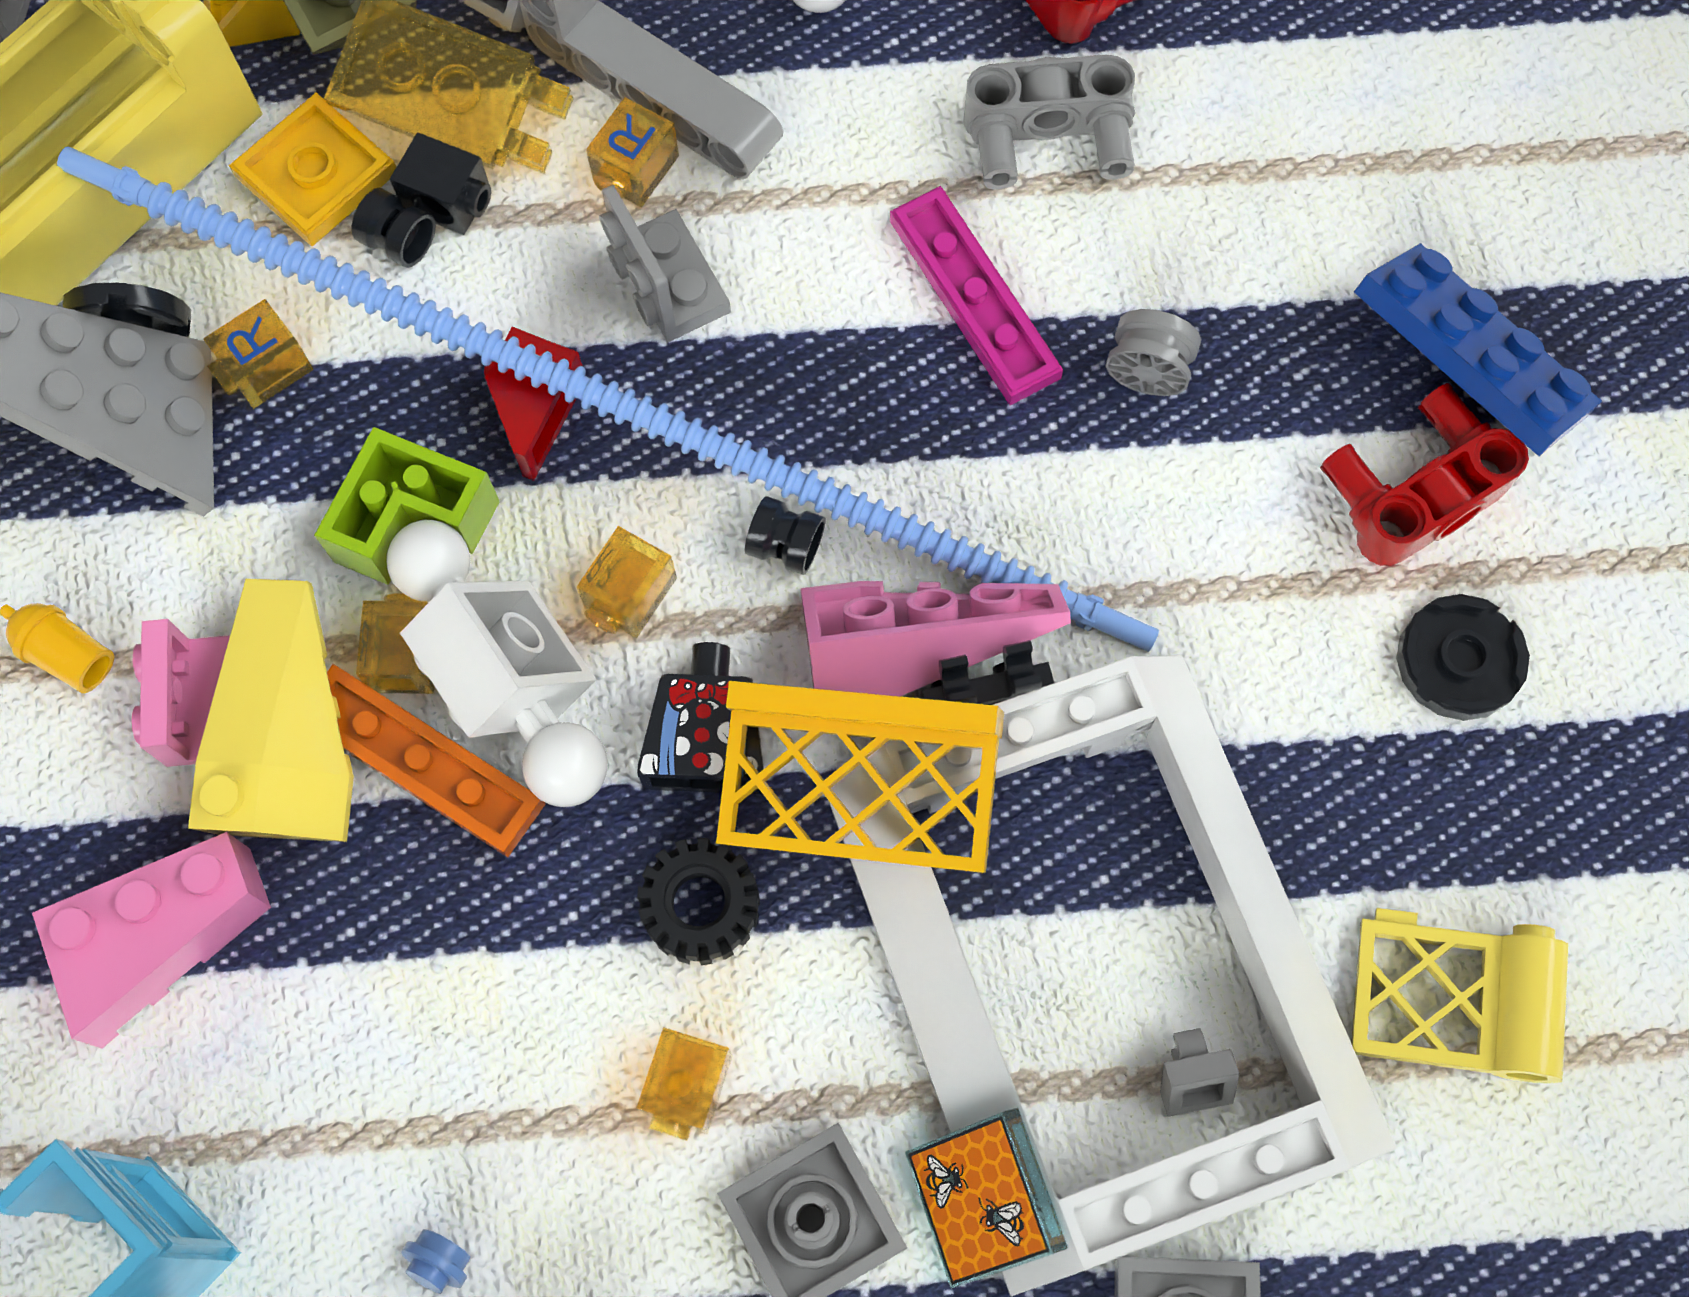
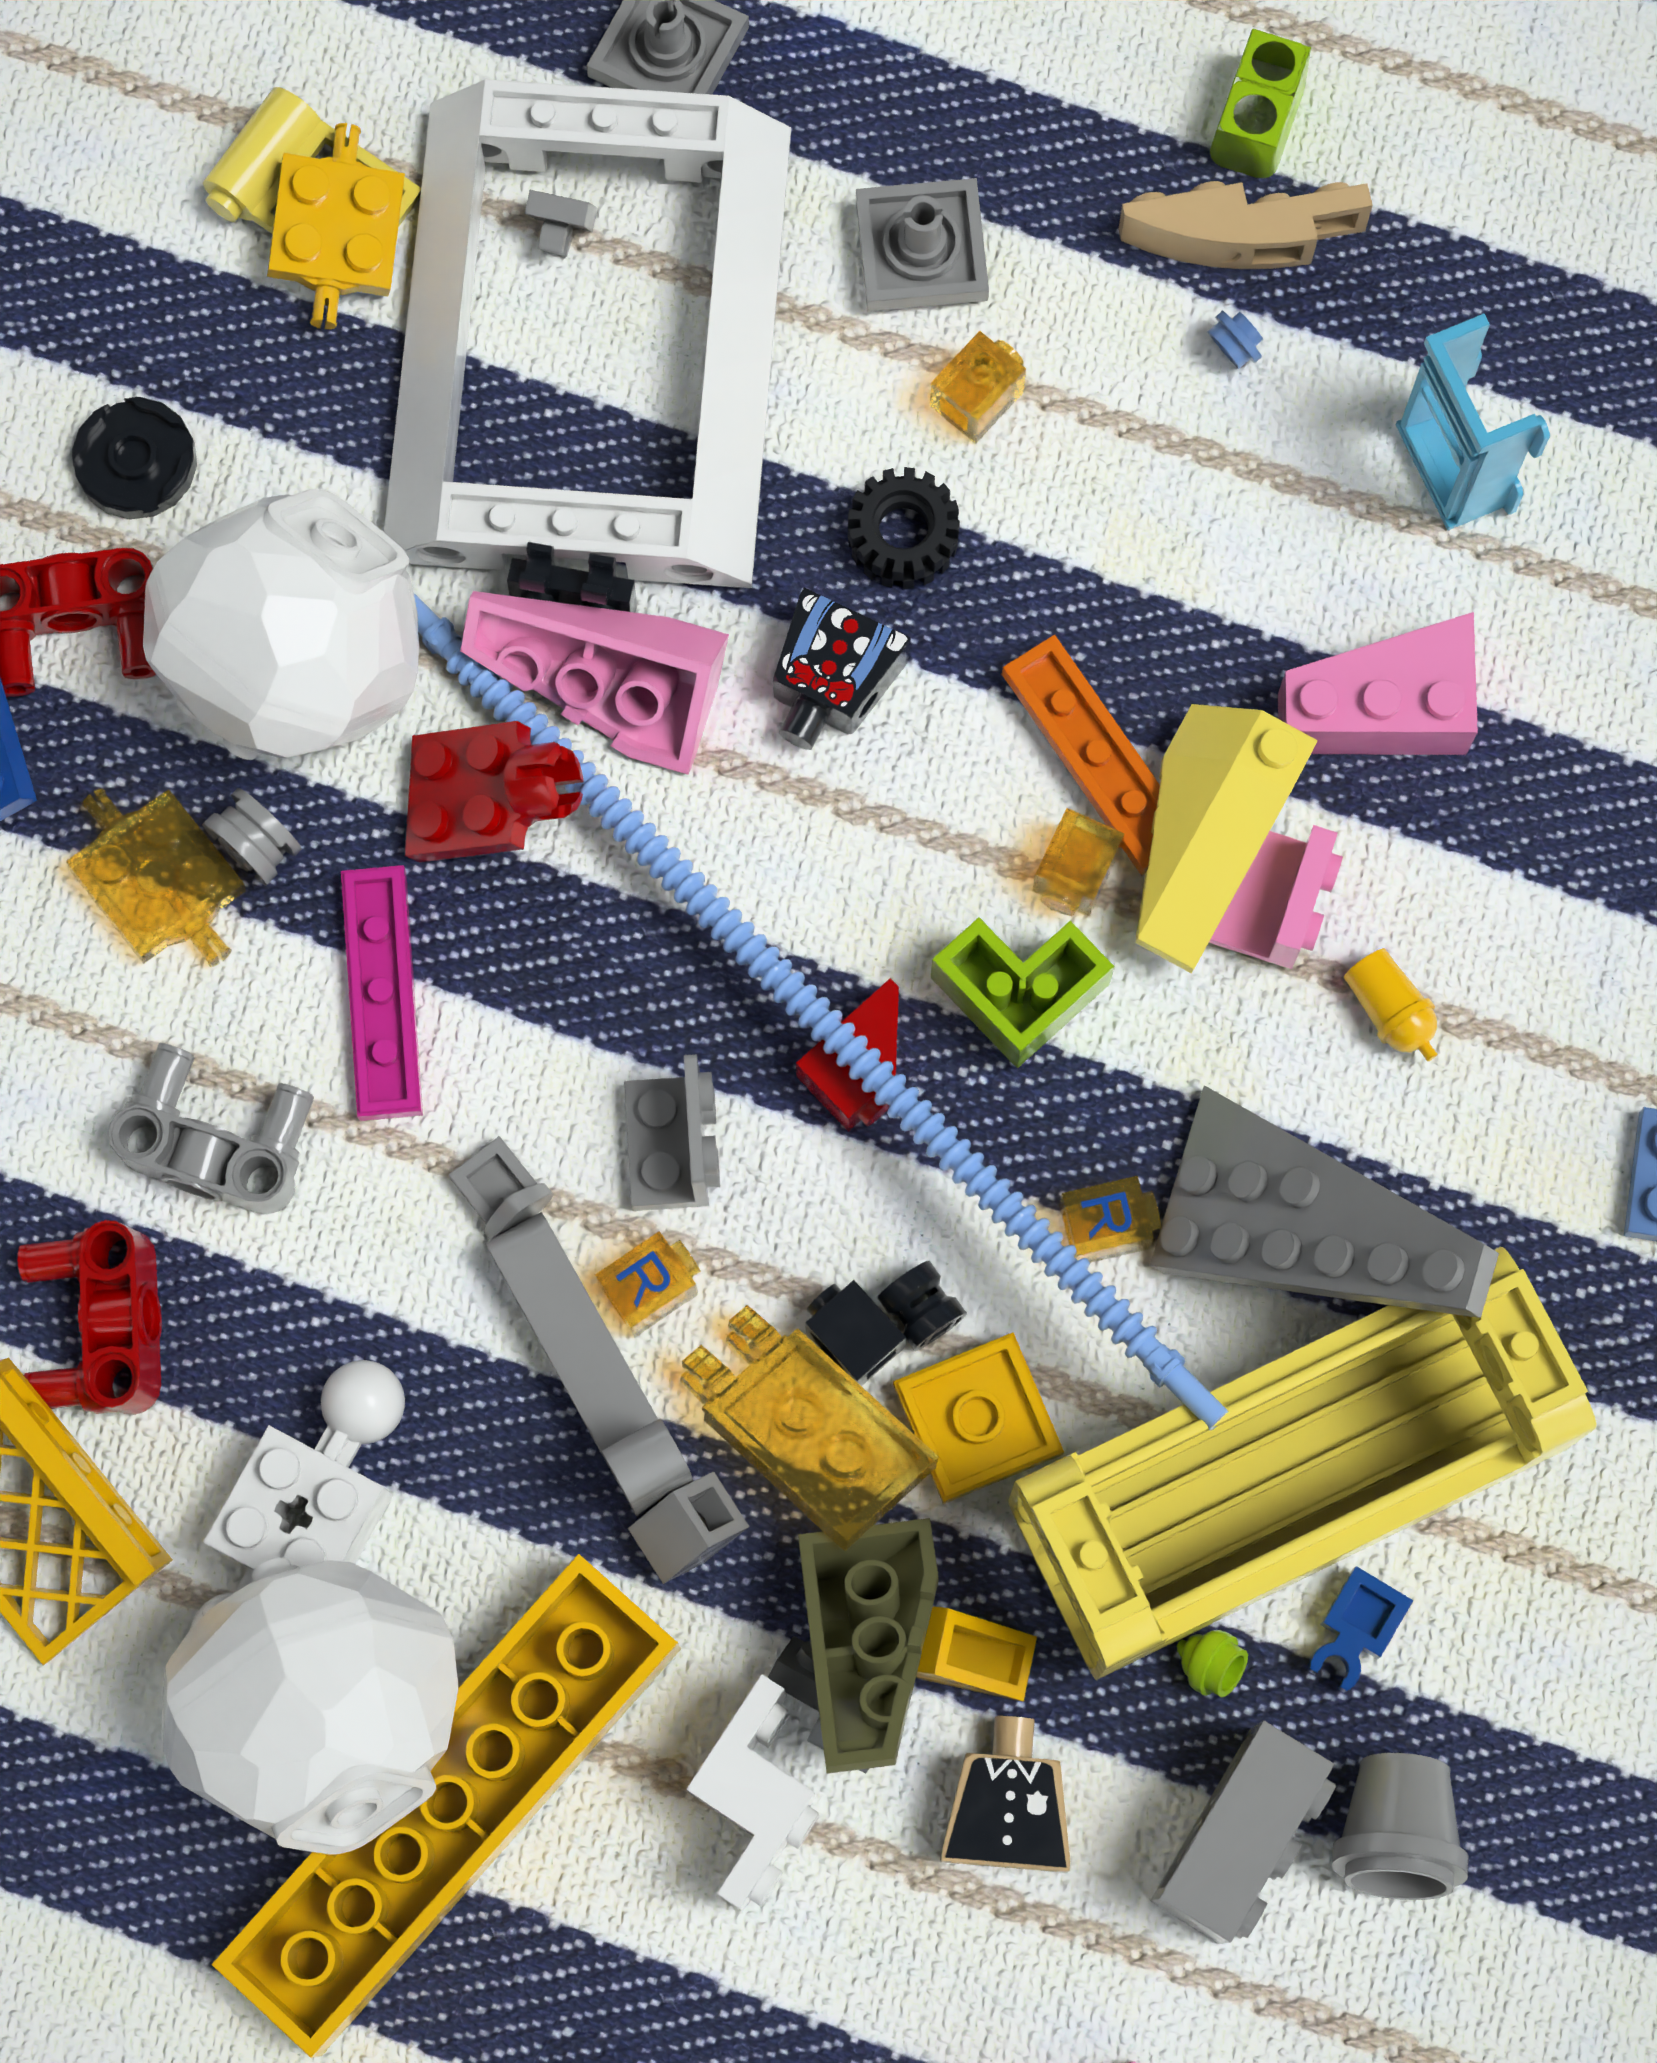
camera: 155 degrees left, 5 degrees up
(132, 305) = (1226, 1301): black tile -> none
(498, 661) = (991, 787): white brick -> none
(626, 583) = (846, 832): clear yellow brick -> none
(784, 535) = (684, 819): black wheel -> none
(791, 182) = (500, 1188): none -> light grey tile
(868, 717) = (705, 581): yellow fence -> none
(971, 472) = (483, 790): none -> red plate
(985, 1198) = (778, 191): tile -> none
(1223, 495) = (285, 625): none -> white rock
(1228, 296) = (156, 876): none -> clear yellow plate
(1413, 959) = (335, 225): none -> yellow plate

